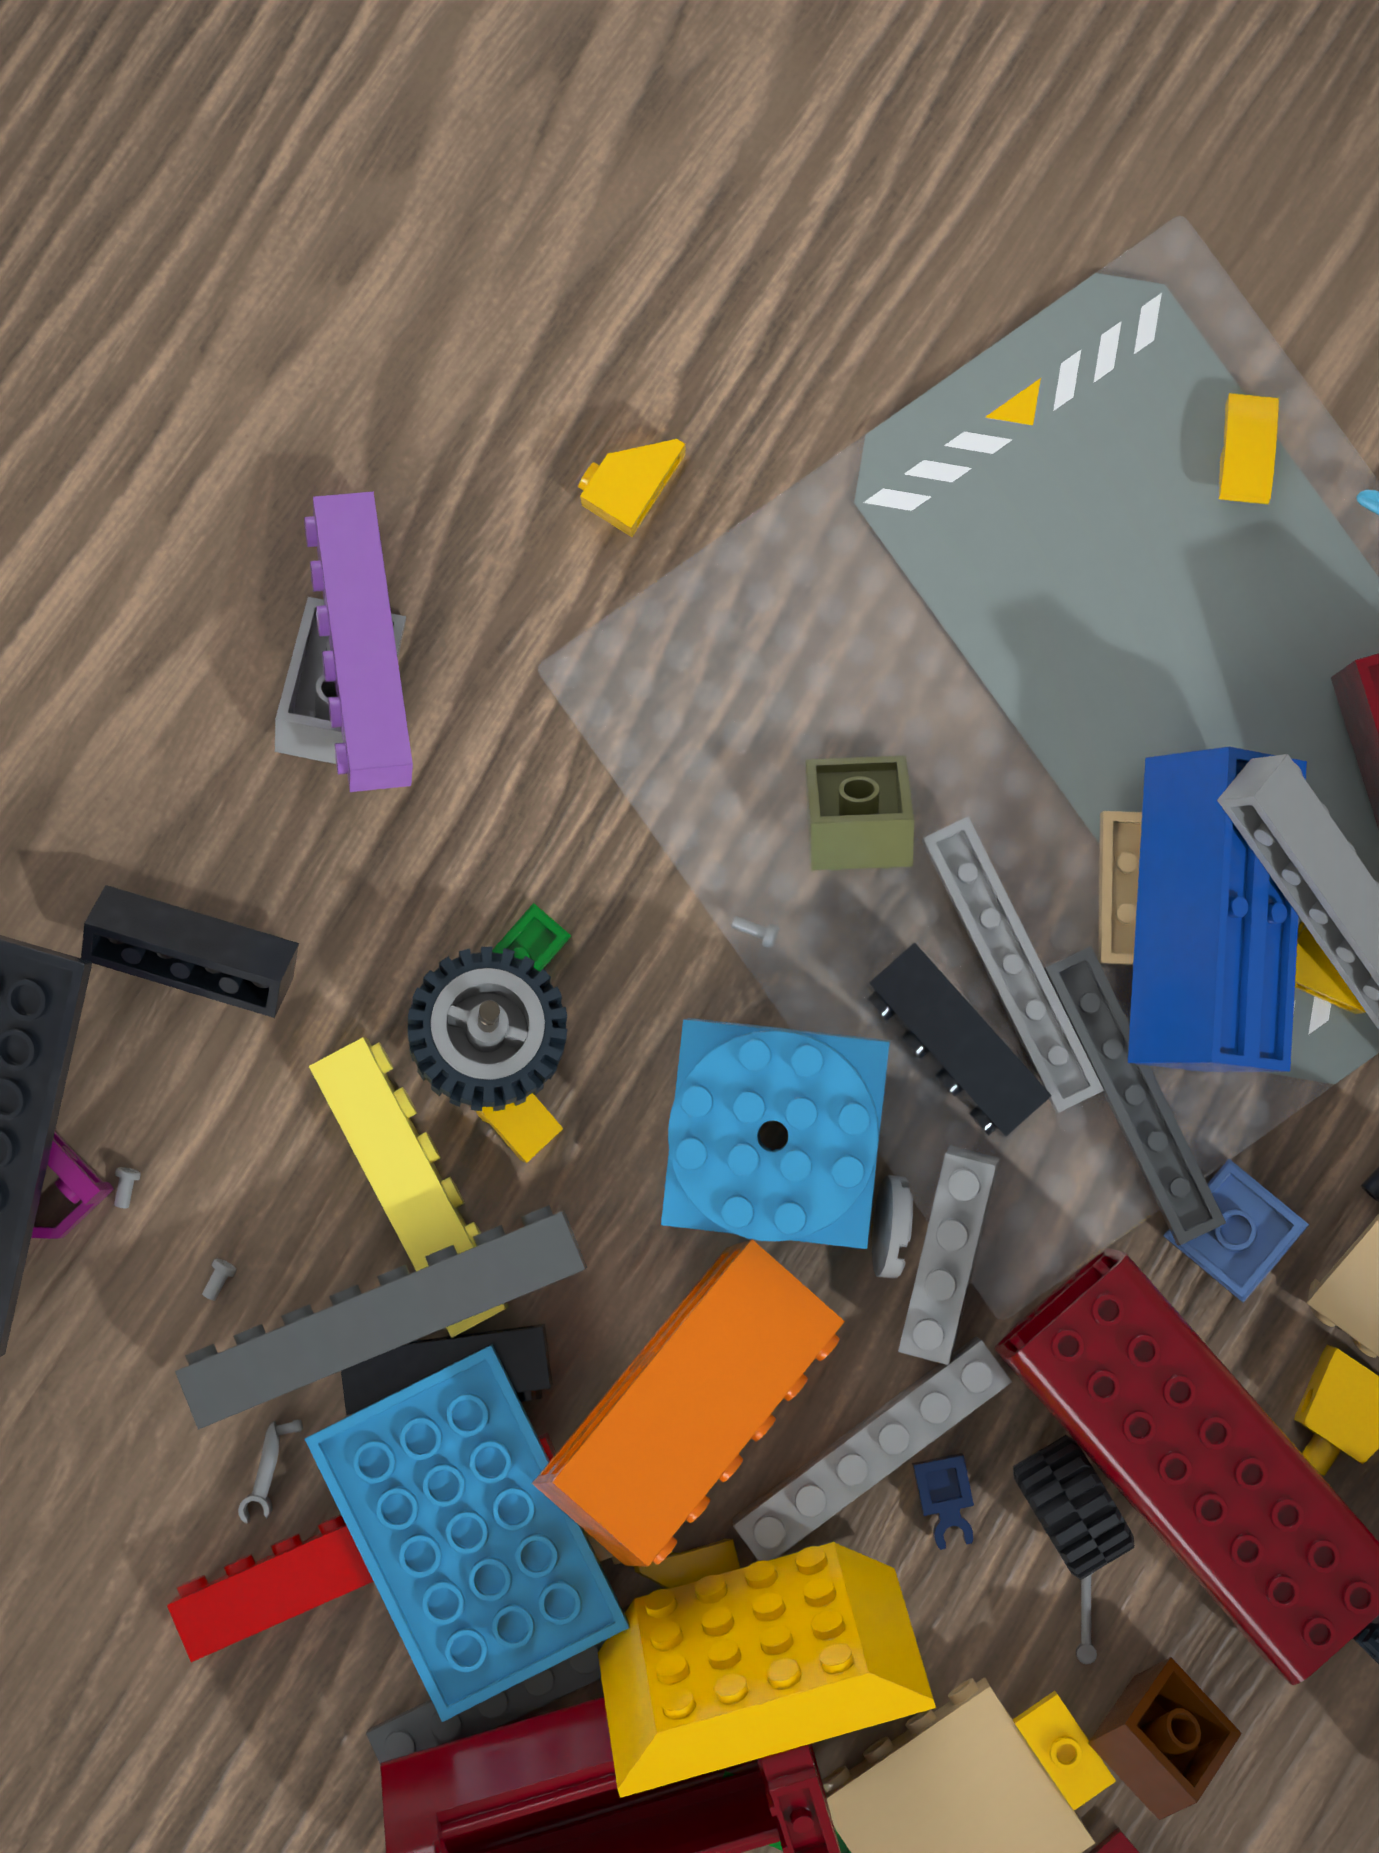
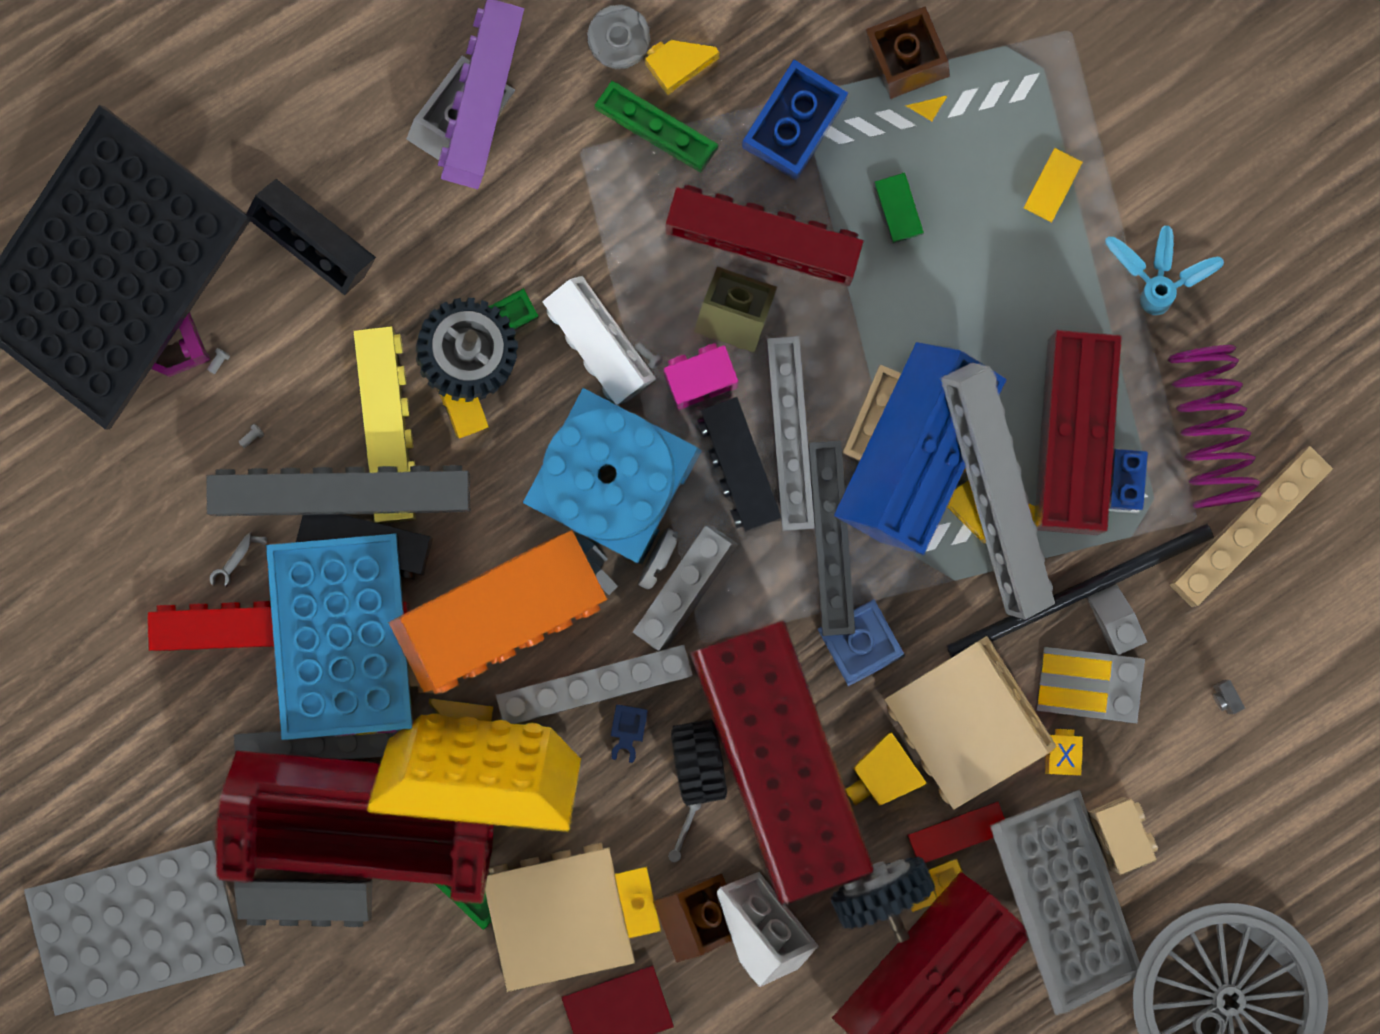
camera: 15 degrees right, 0 degrees up
(527, 479) = (618, 36): none -> light grey tile
(635, 589) = (656, 126): none -> green tile
(675, 938) = (598, 340): none -> white brick
(796, 1261) = (596, 560): none -> light grey slope
(837, 500) = (794, 120): none -> blue brick
(849, 934) = (701, 375): none -> dark pink piece
(862, 688) = (763, 235): none -> dark red brick
(961, 337) = (908, 52): none -> reddish brown brick
(1036, 570) = (898, 208): none -> green tile
(1268, 1726) = (763, 930): none -> white slope

